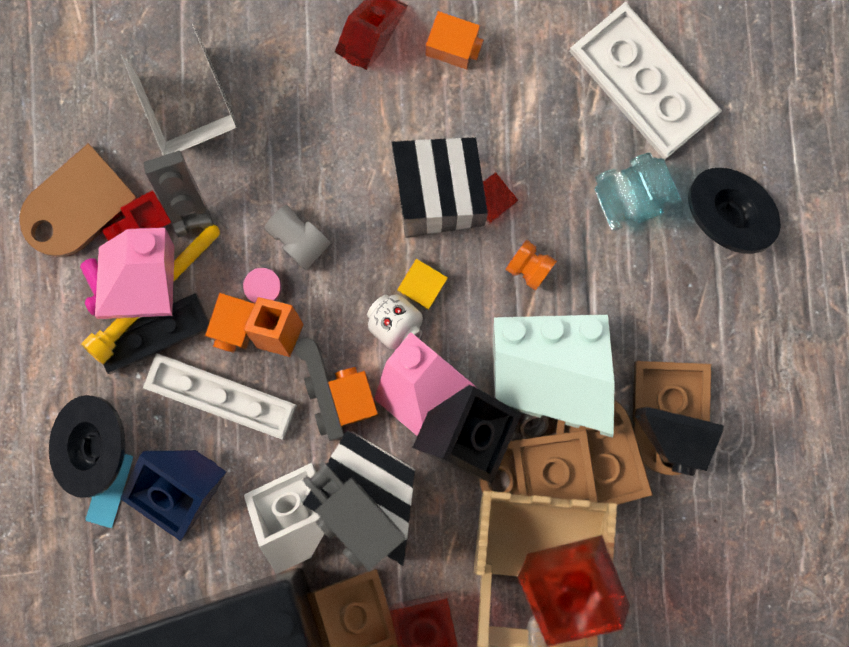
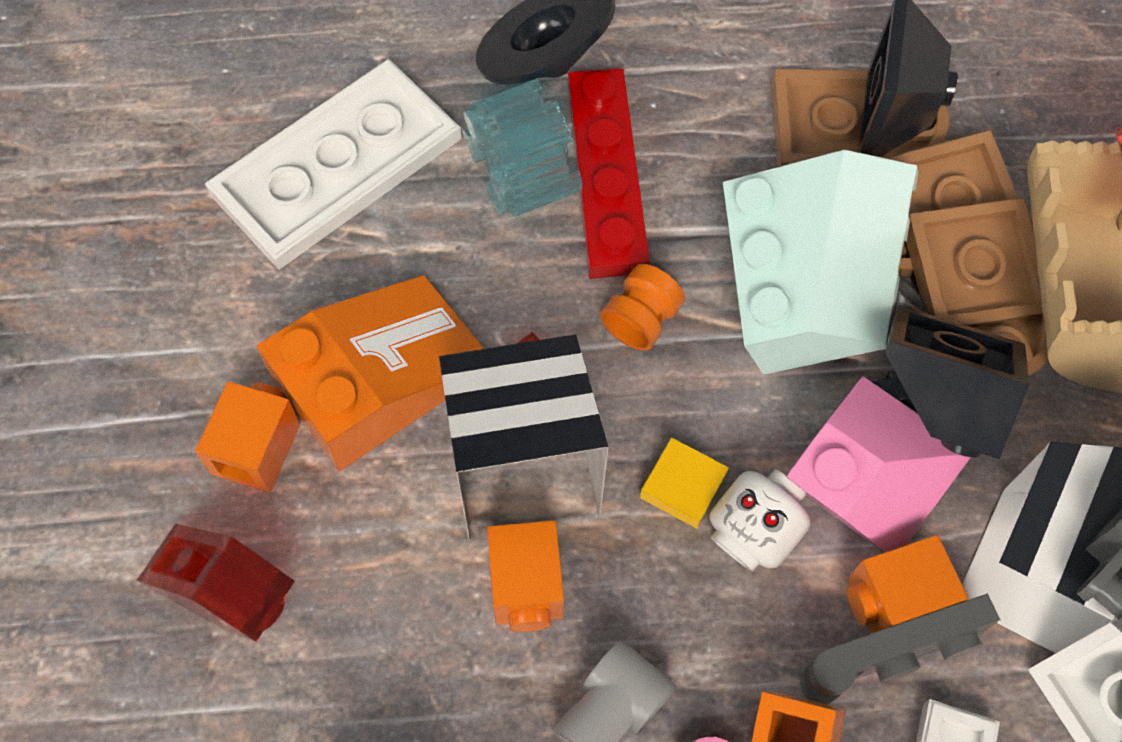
camera: 95 degrees left, 20 degrees down
(367, 192) = (526, 575): none -> orange brick
(498, 109) = (366, 365): none -> orange slope
(635, 250) = (609, 173): none -> red plate

